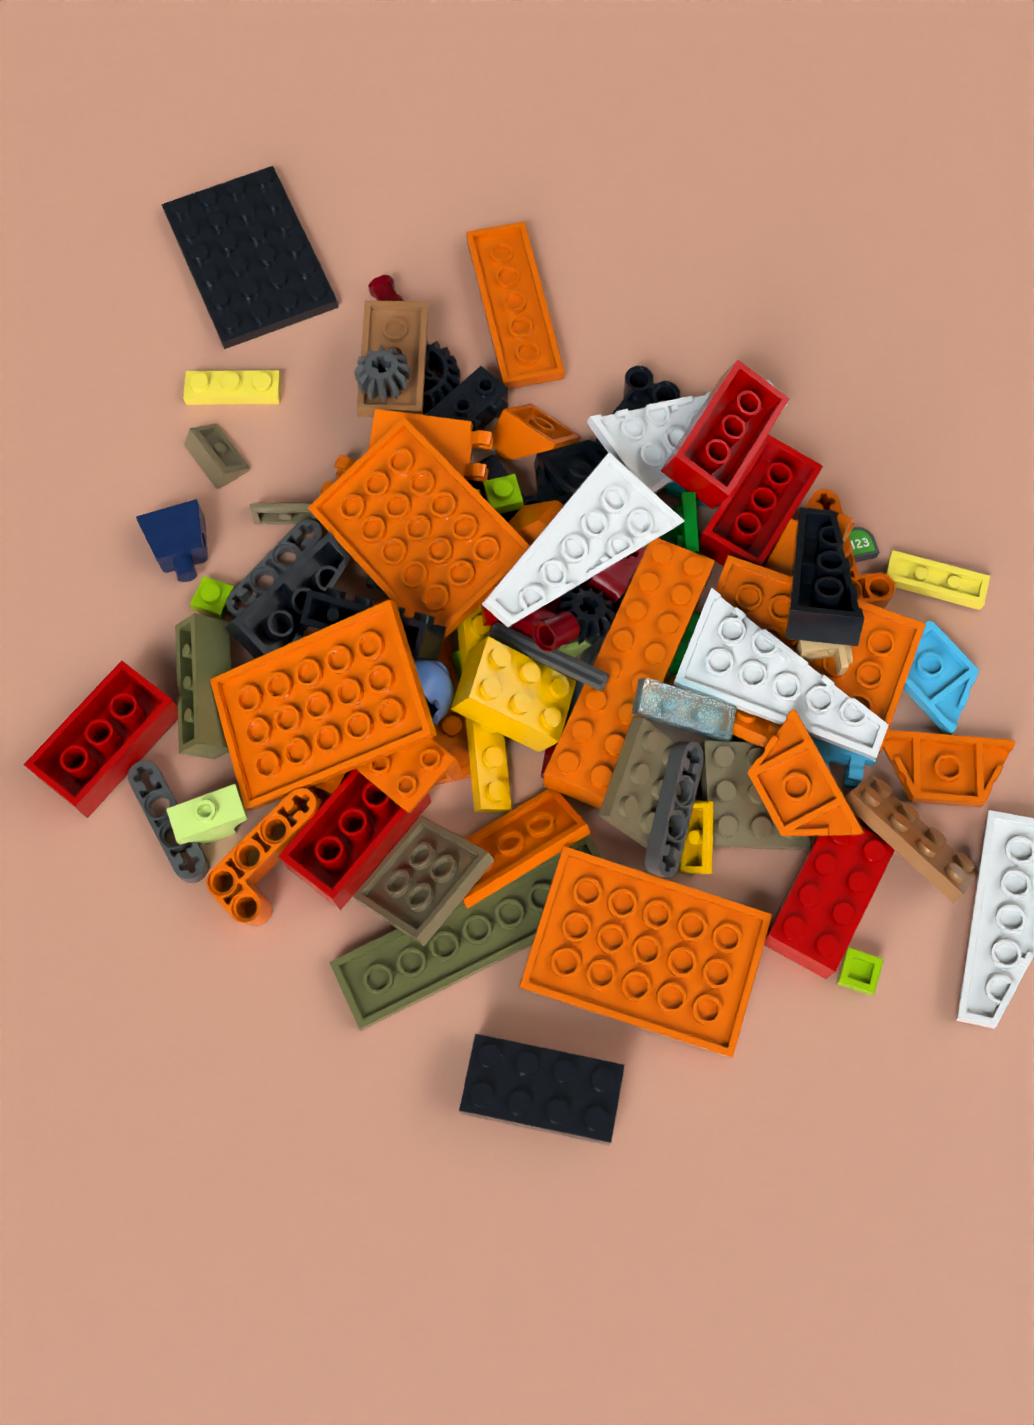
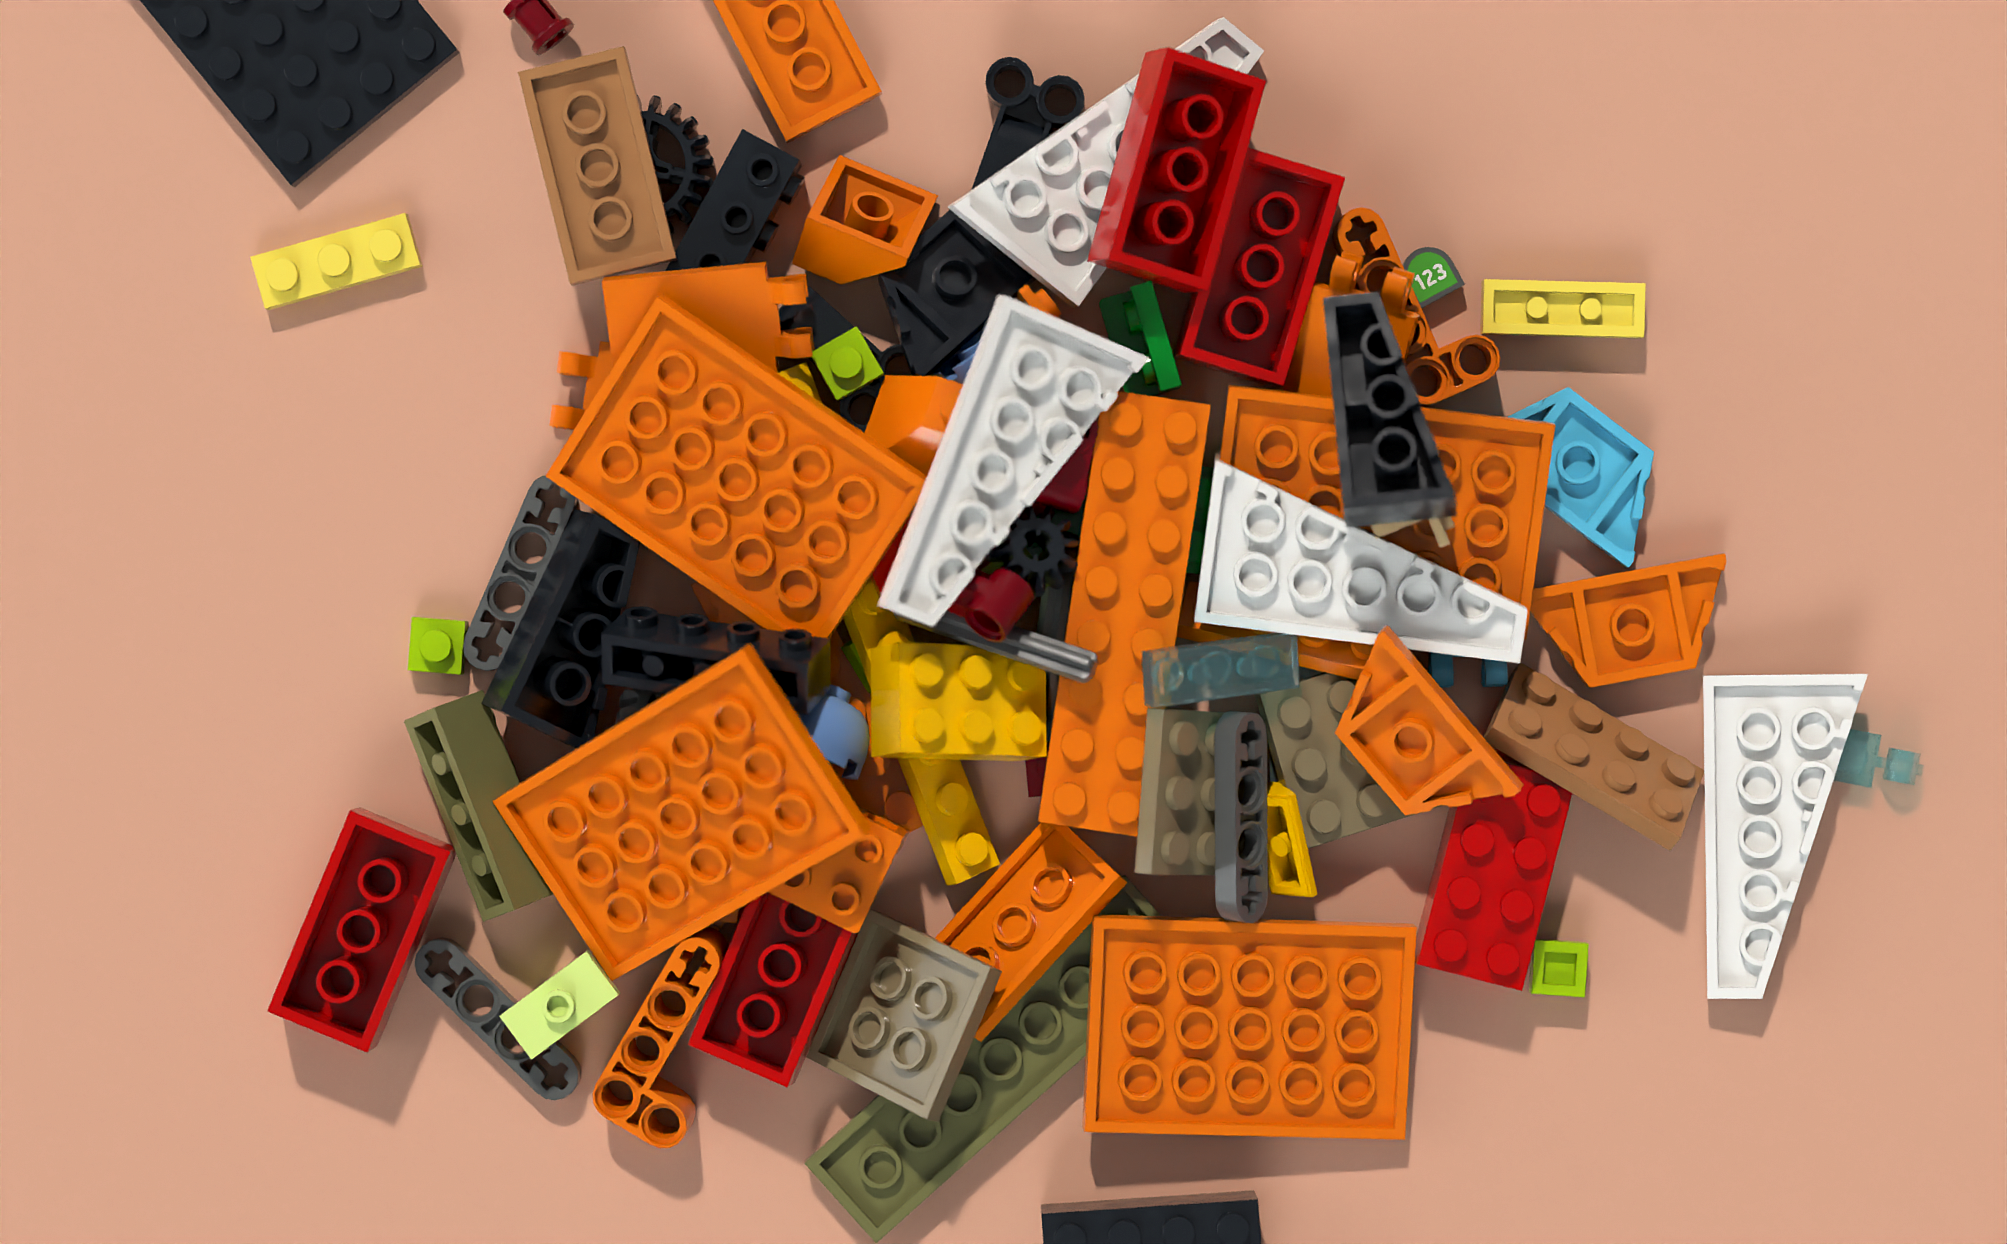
camera: 10 degrees left, 20 degrees up
(177, 538) = (349, 568): dark blue torso -> none
(215, 454) = (353, 392): dark tan slope -> none
(281, 512) = (501, 464): dark tan slope -> none
(382, 373) = (607, 204): dark grey gear -> none

